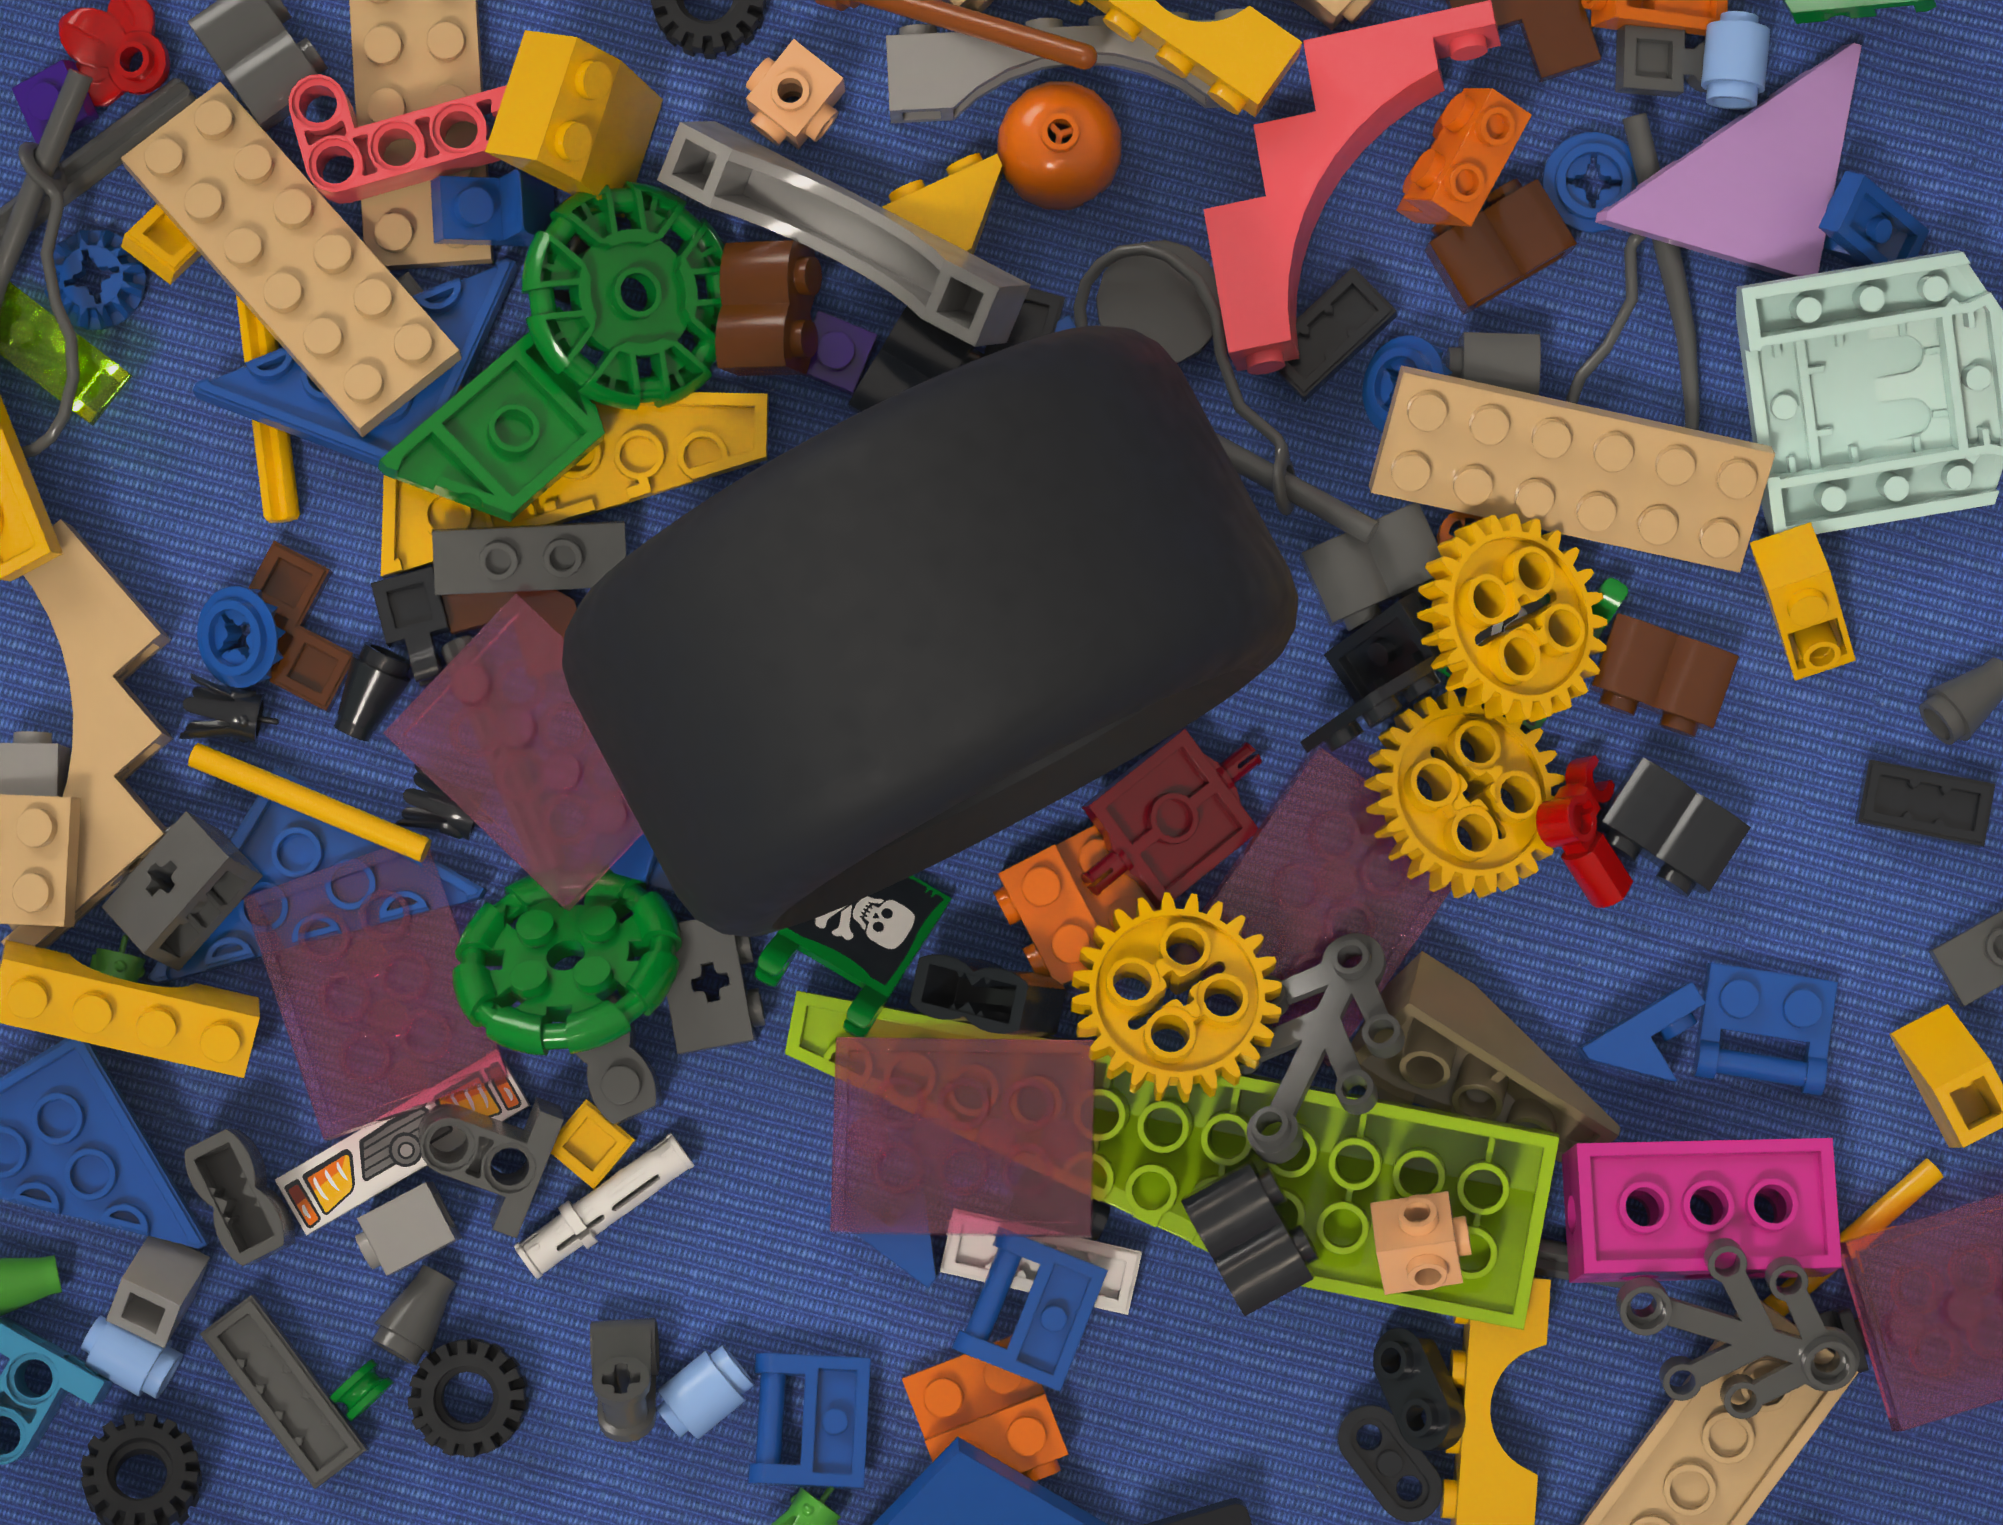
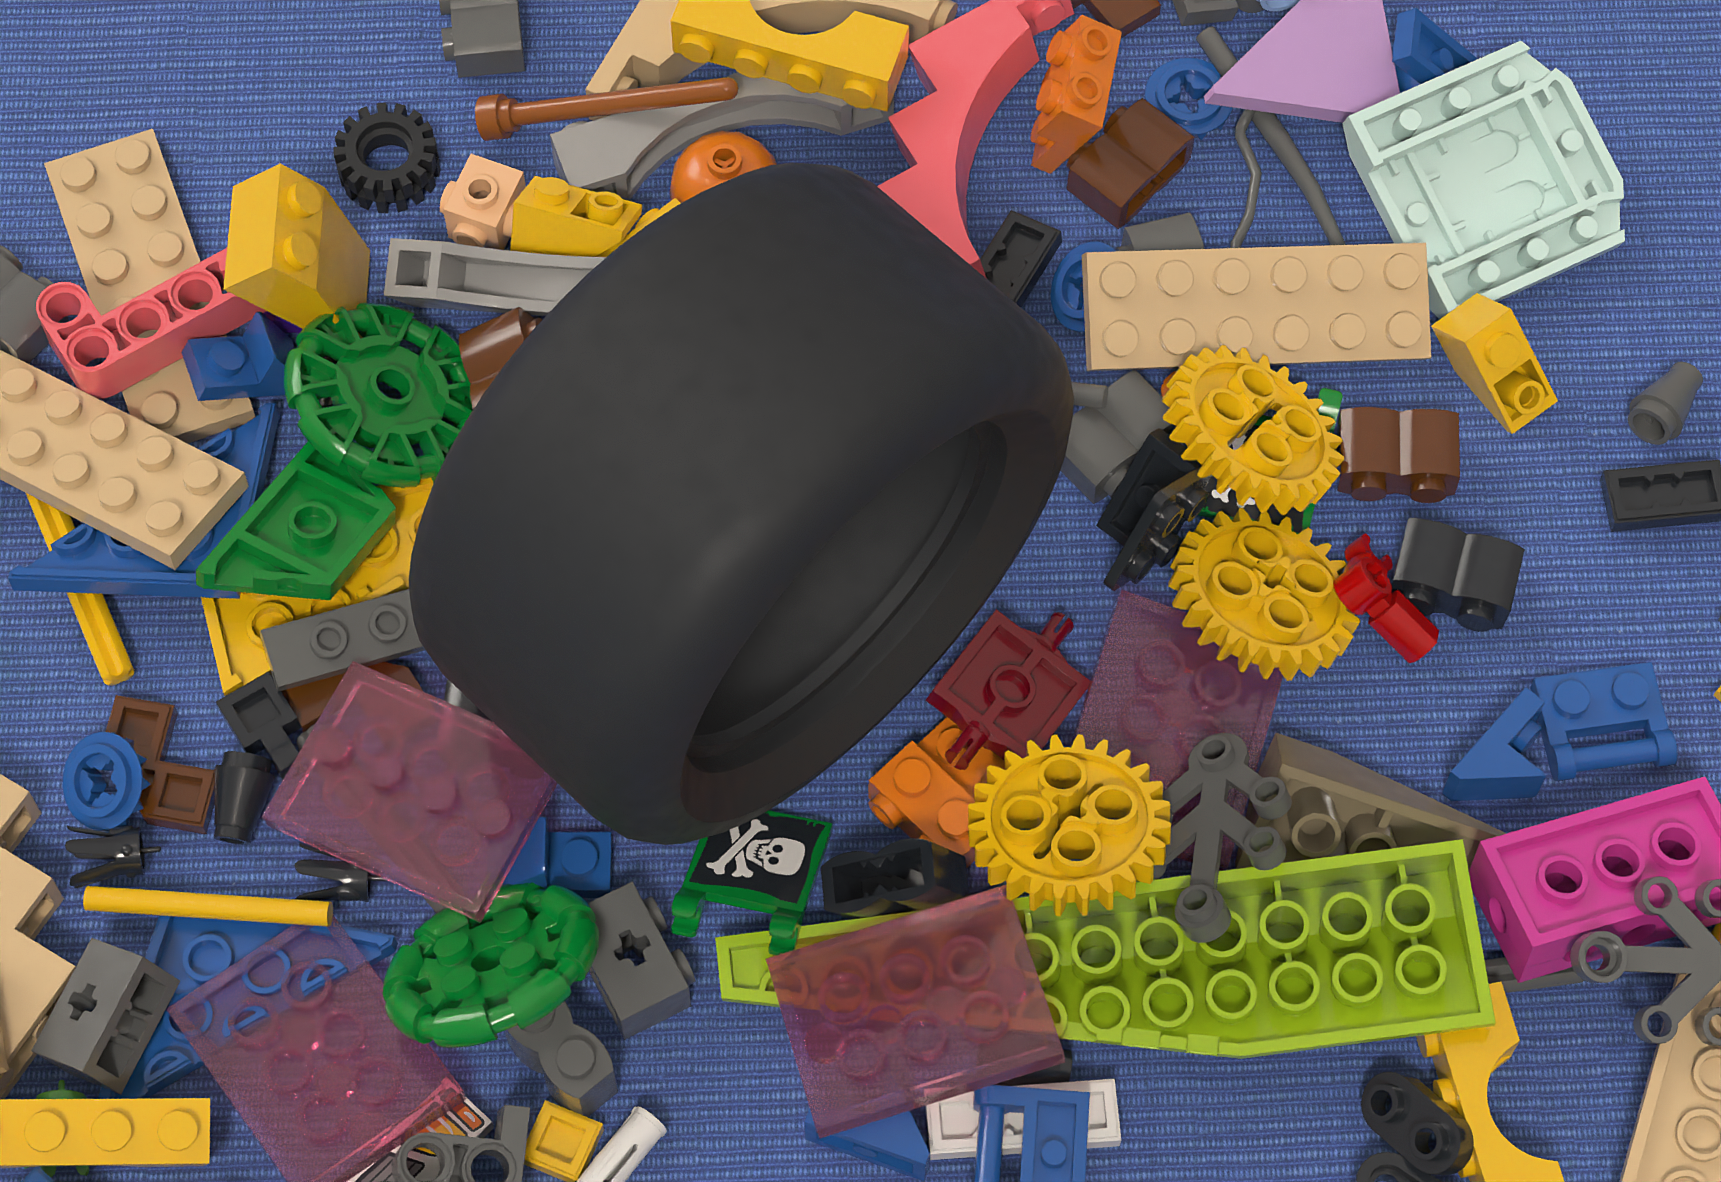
camera: 20 degrees left, 20 degrees down
(876, 150) = (569, 219): none -> yellow slope
(1250, 1237) = (1212, 1011): black brick -> none
(1419, 1242) = (1372, 961): light nougat brick -> none

